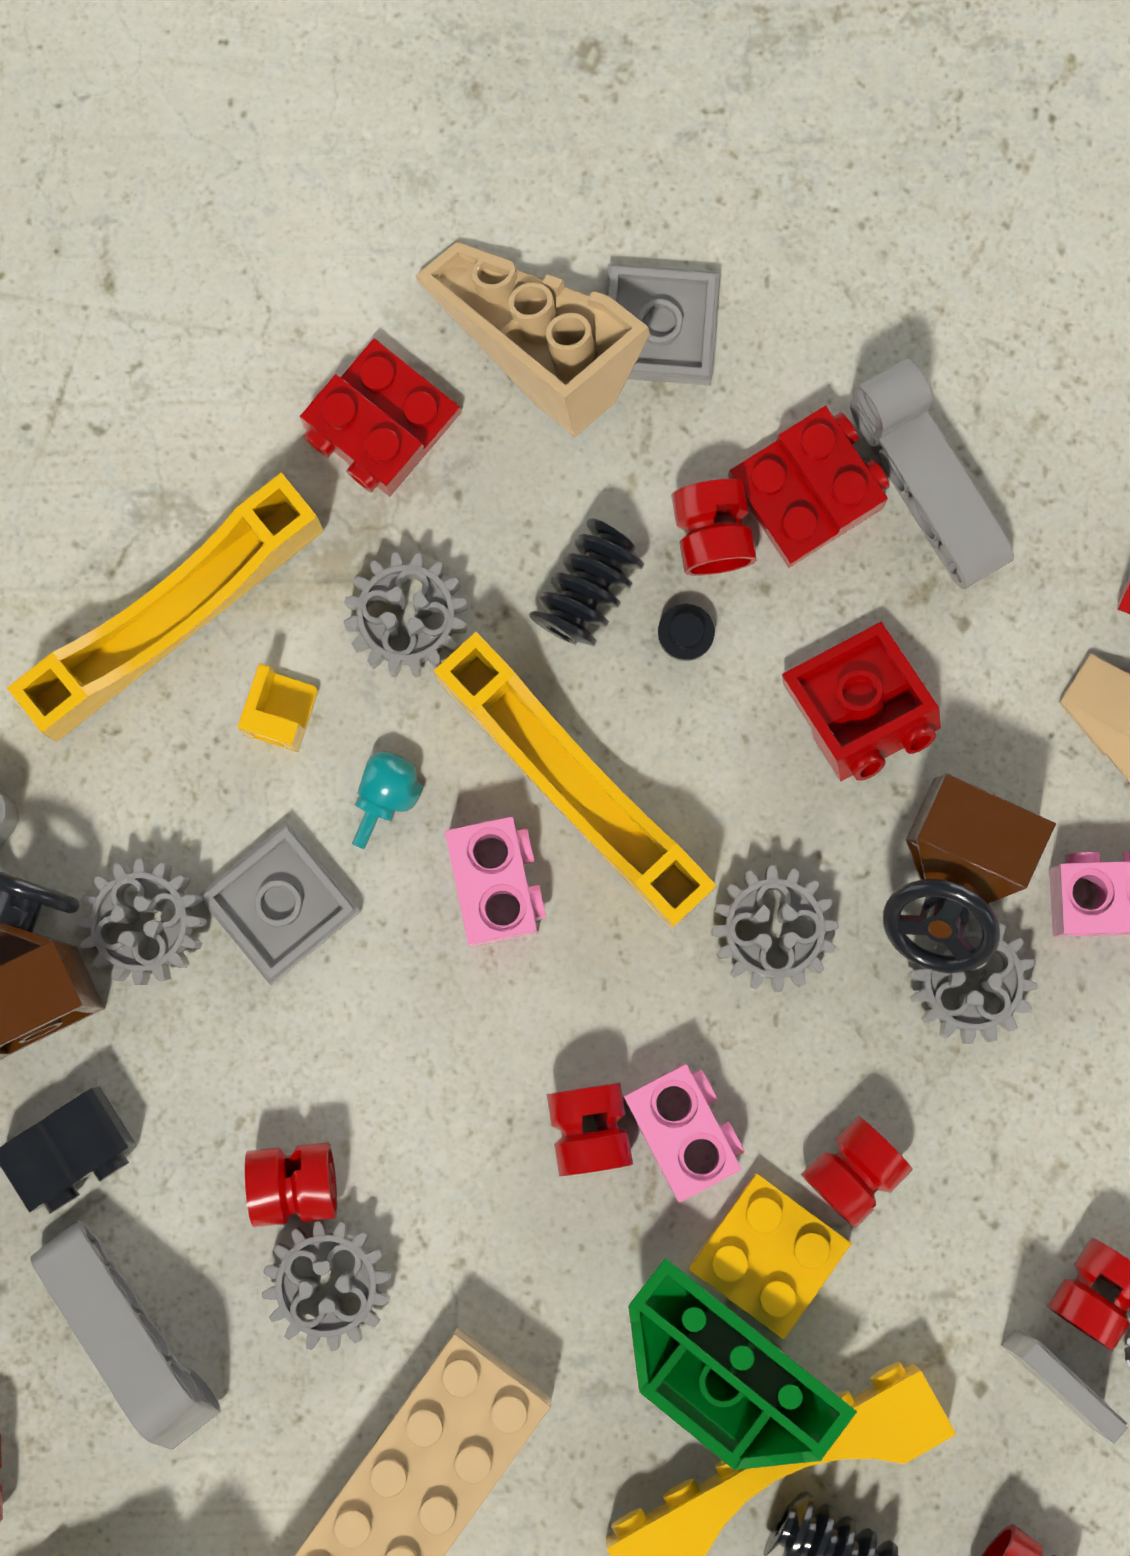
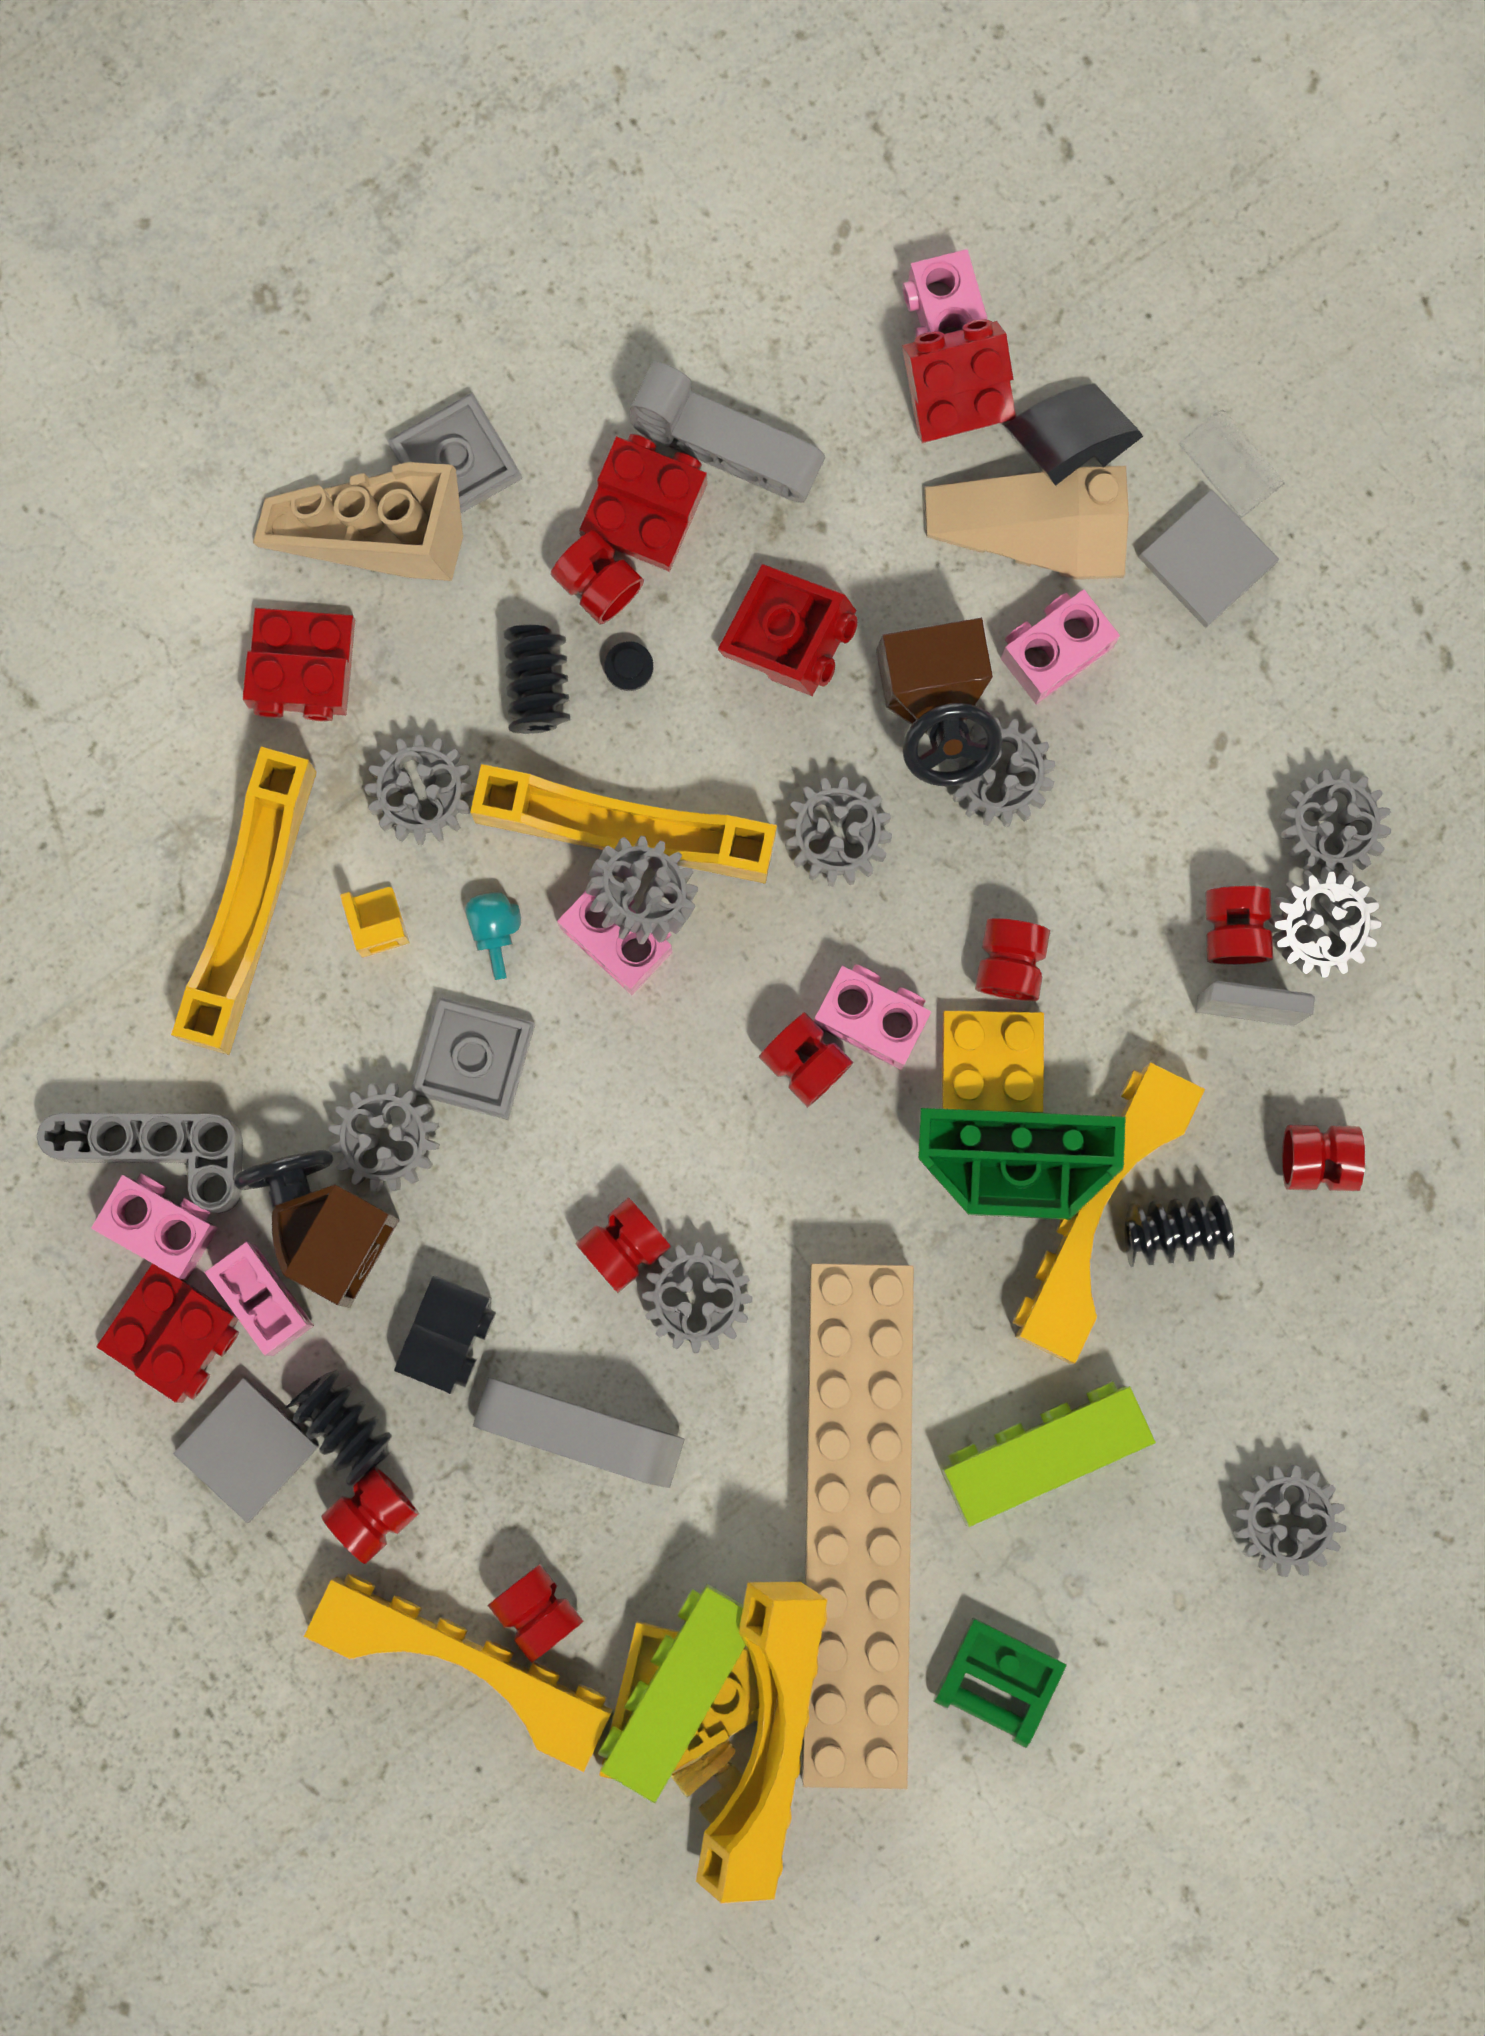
camera: 40 degrees left, 0 degrees up
(537, 889) = (630, 865): none -> light grey gear

